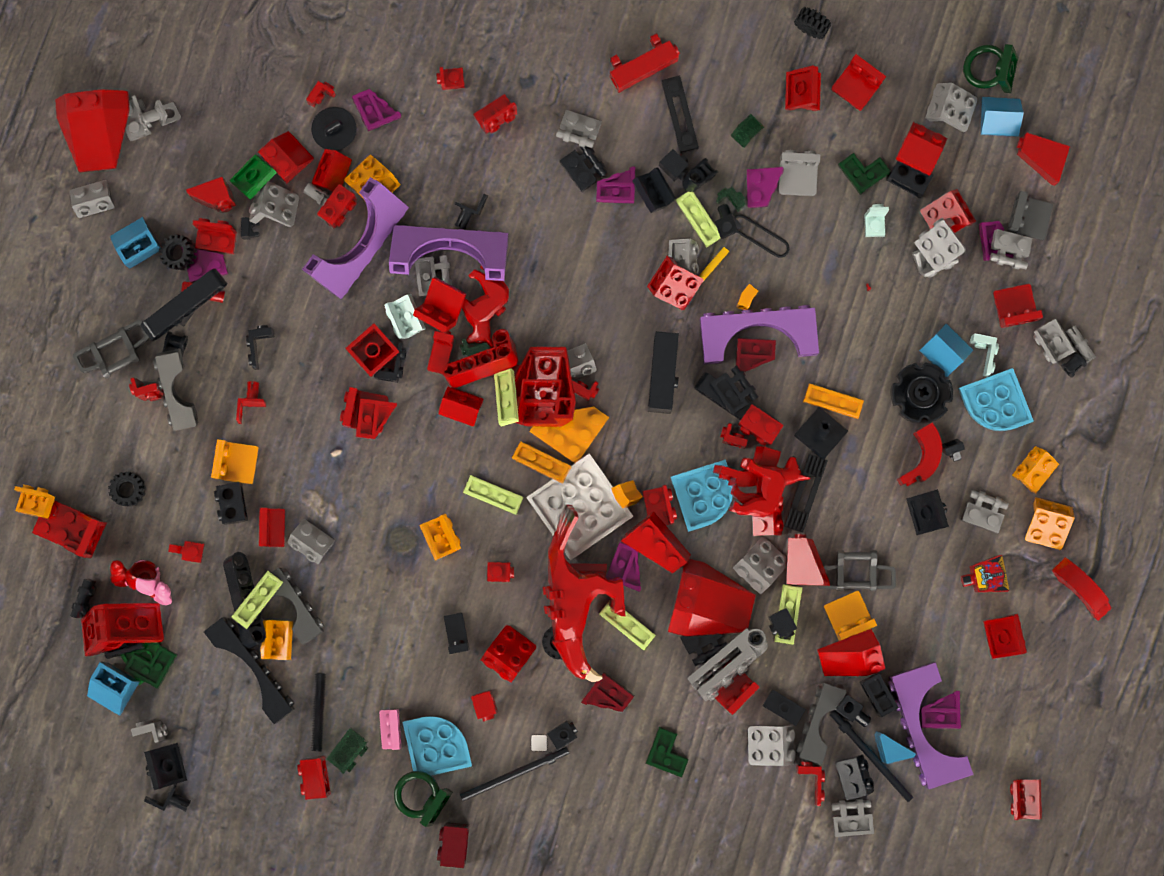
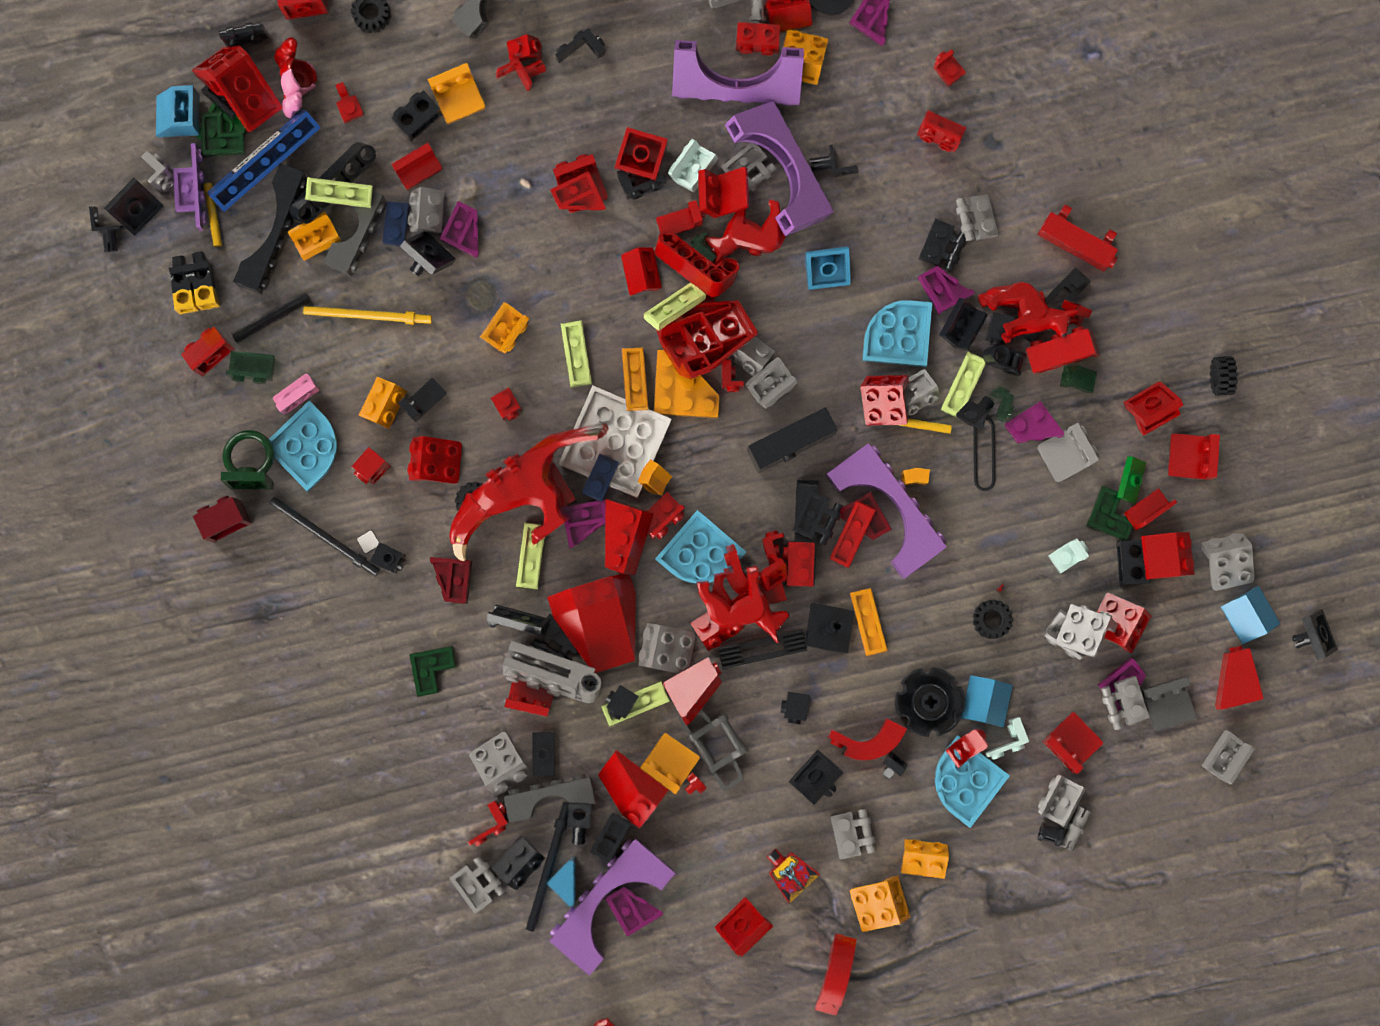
camera: 60 degrees right, 0 degrees up
(177, 715) = (188, 188): none -> medium lavender bracket
(192, 643) = (263, 160): none -> blue brick
(209, 709) = (213, 219): none -> yellow bar
(231, 389) = (524, 48): none -> red bracket
(249, 756) = (193, 284): none -> hips
(305, 571) = (395, 223): none -> dark blue plate
(343, 523) = (462, 229): none -> magenta wing
(346, 561) = (427, 254): none -> black tile
(385, 605) = (408, 317): none -> yellow bar
(439, 666) = (382, 402): none -> light orange bracket
(547, 264) = (827, 268): none -> dark azure slope
(601, 534) = (600, 477): none -> dark blue plate
(609, 361) = (771, 383): none -> light grey bracket
(631, 242) = (899, 334): none -> medium azure plate
(671, 664) = (517, 620): none -> black hinge
(677, 133) = (1032, 310): none -> red animal
(696, 101) = (1083, 311): none -> red tile
(719, 129) = (1062, 350): none -> red wedge
(757, 448) = (773, 574): none -> red bracket
(761, 371) = (853, 534): none -> red tile
(847, 139) = (1131, 479): none -> green plate
(865, 495) = (795, 707): none -> black brick
(876, 606) = (695, 784): none -> red tile
(877, 140) = (1148, 509): none -> red panel
(888, 296) = (979, 619): none -> black tyre
(973, 385) = (968, 746): none -> red bracket
(1005, 67) = (1300, 589): dark green tile -> none
(1046, 77) = (1317, 634): none -> black tile
(1096, 199) = (1227, 757): none -> light grey bracket

